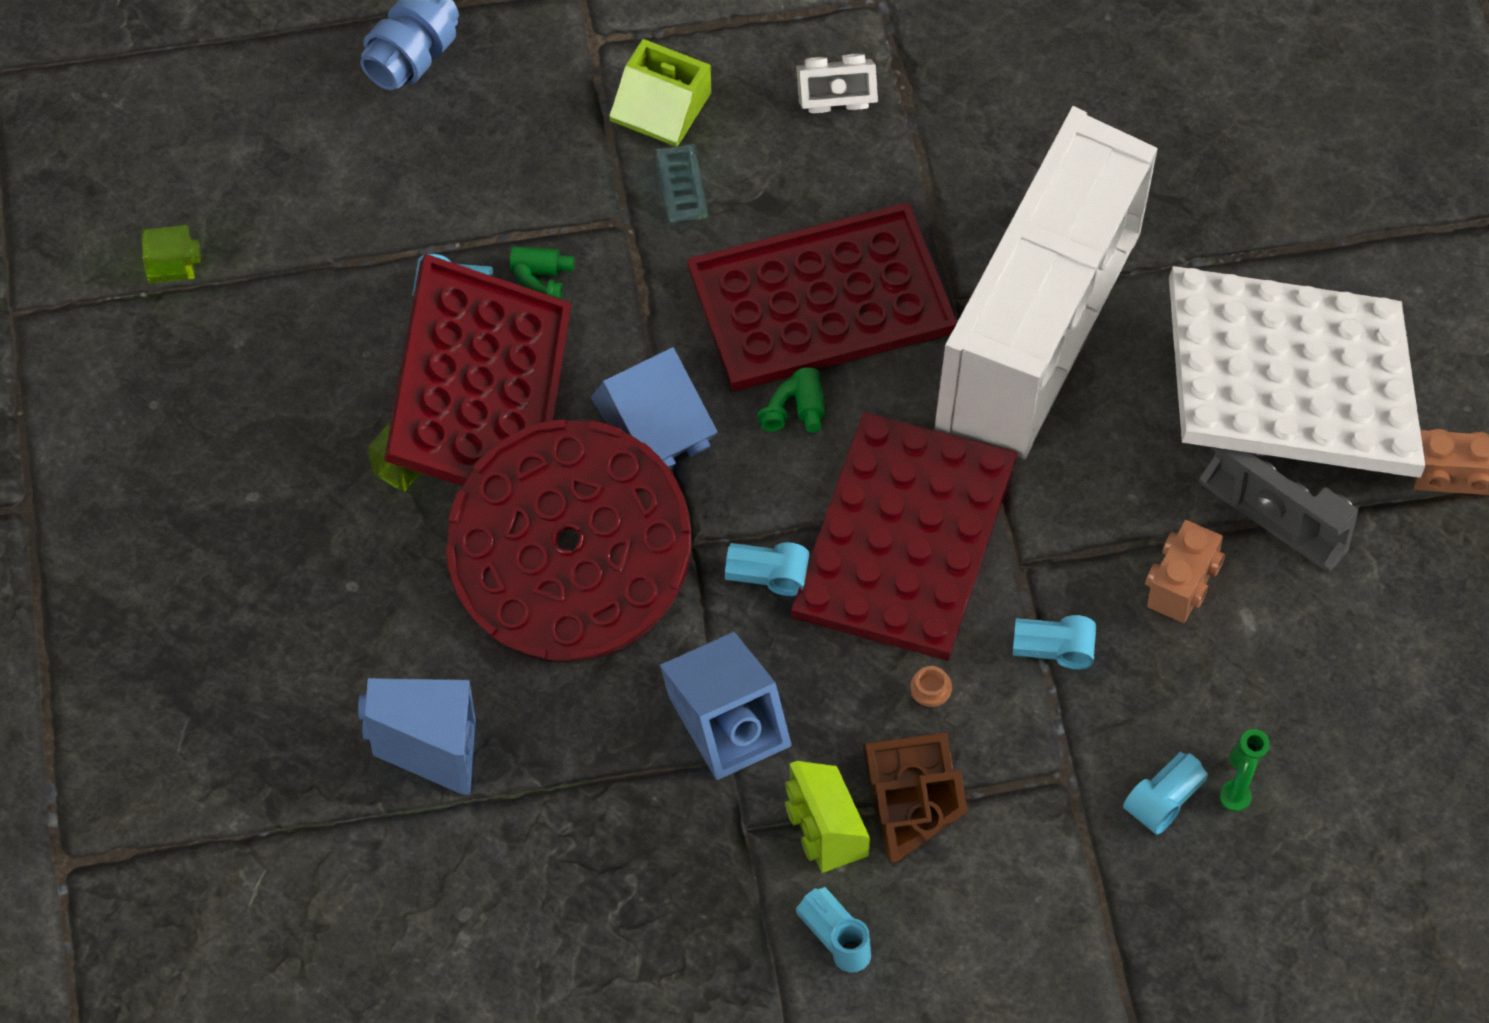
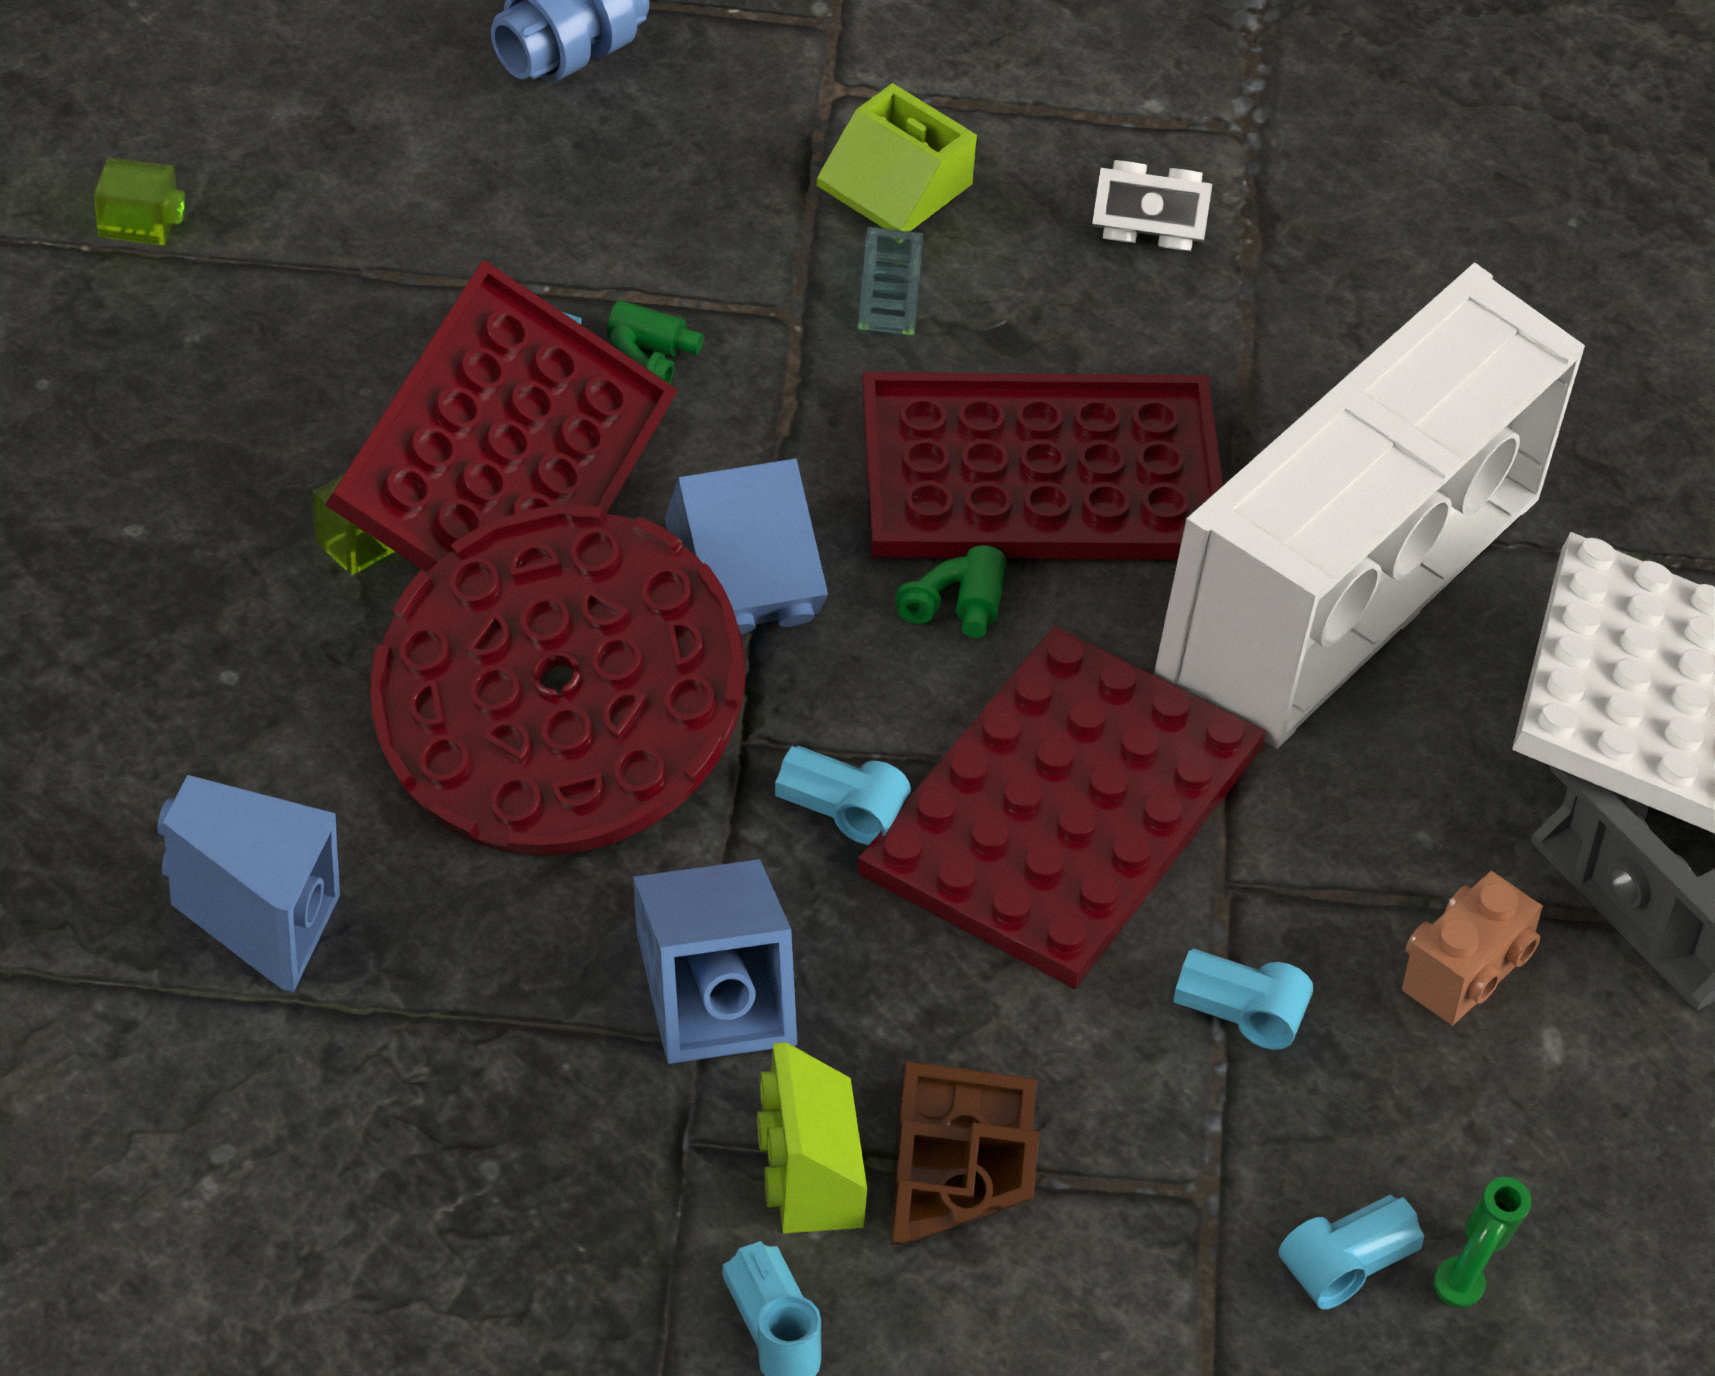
camera: 10 degrees right, 10 degrees down
(931, 686) = (1035, 1013): nougat plate -> none

